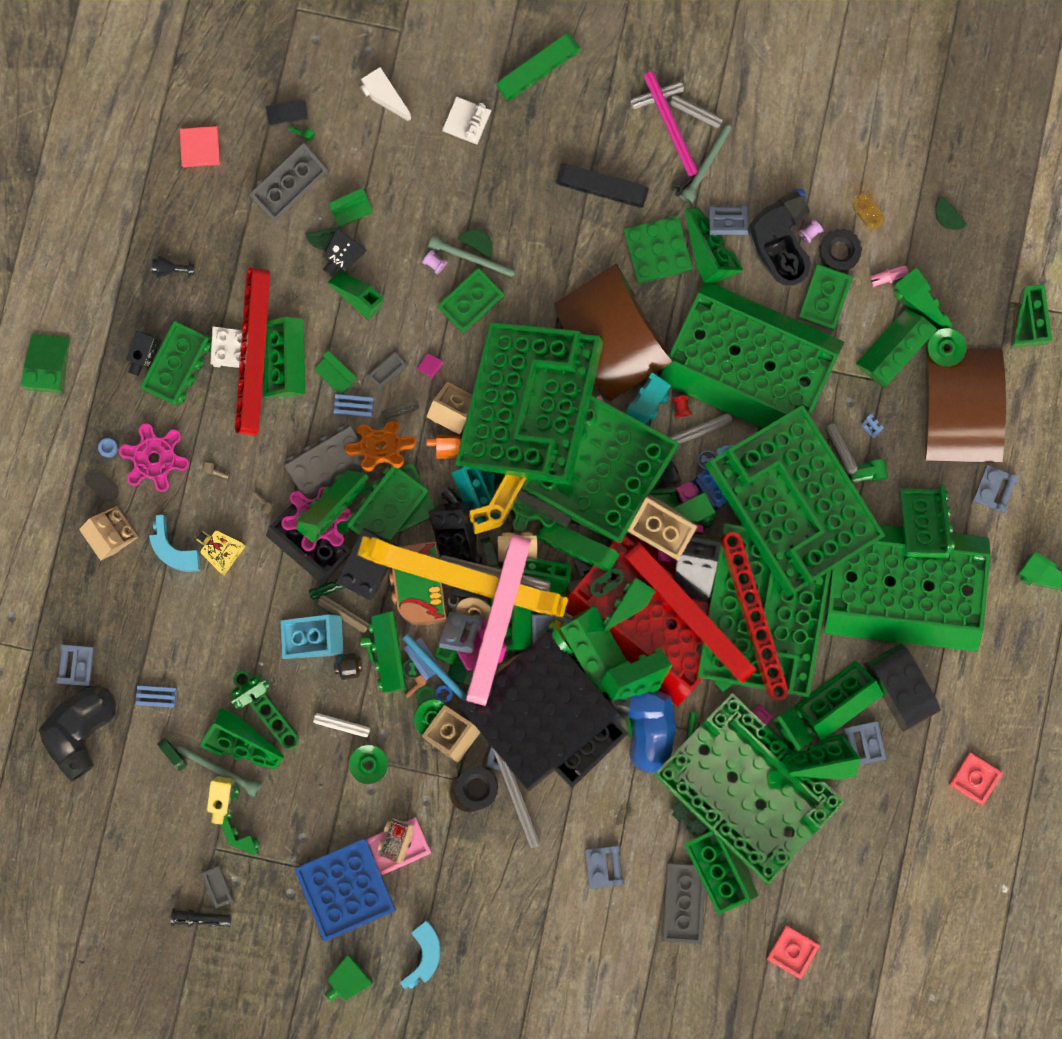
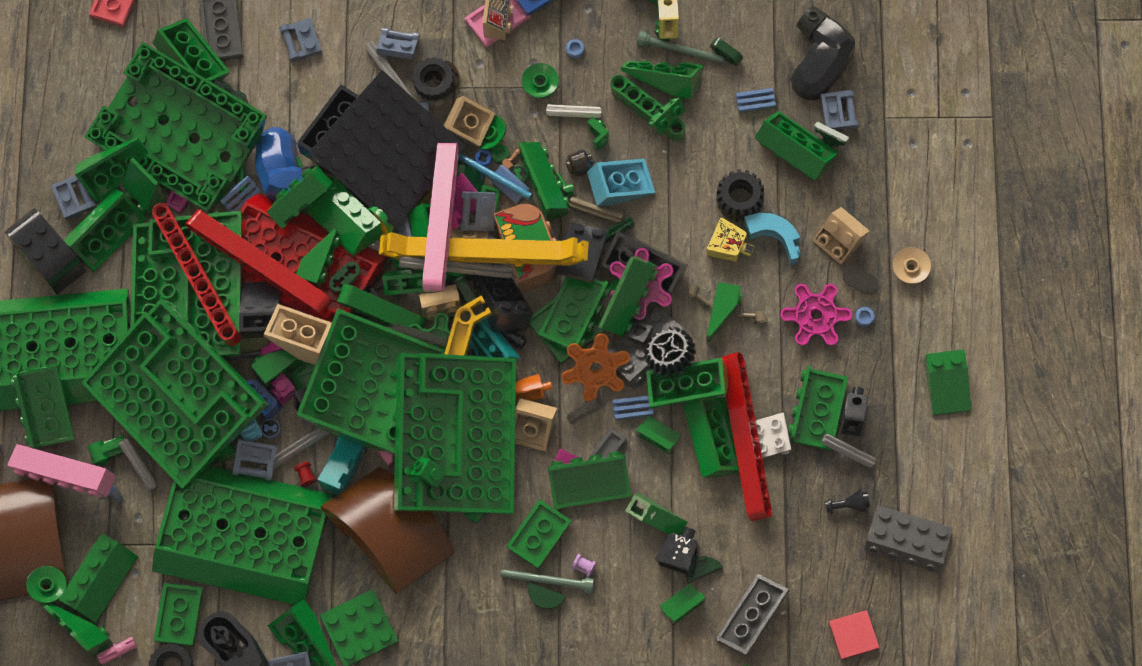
camera: 170 degrees right, 10 degrees down
(39, 483) = (916, 258): none -> tan dish
(90, 637) = (830, 135): none -> tile
(124, 222) = (908, 539): none -> dark grey bracket
(127, 637) = (796, 145): none -> green slope
(158, 316) = (848, 450): none -> light grey axle
(208, 606) = (740, 181): none -> black tyre
(241, 485) = (724, 306): none -> green slope
(295, 406) = (699, 382): none -> green slope
(299, 445) = (672, 356): none -> black gear
(321, 699) = (599, 130): none -> green bracket
(325, 794) = (575, 49): none -> medium blue tile
(328, 470) = (640, 333): none -> black plate
(411, 339) = (589, 480): none -> green bracket
(507, 832) = (397, 48): none -> sand blue plate
(563, 363) = (428, 471): none -> green bracket
(694, 705) = (256, 190): none -> medium blue tile
(725, 430) = (254, 453): none -> sand blue plate
(916, 449) = (61, 470): none -> bright pink brick

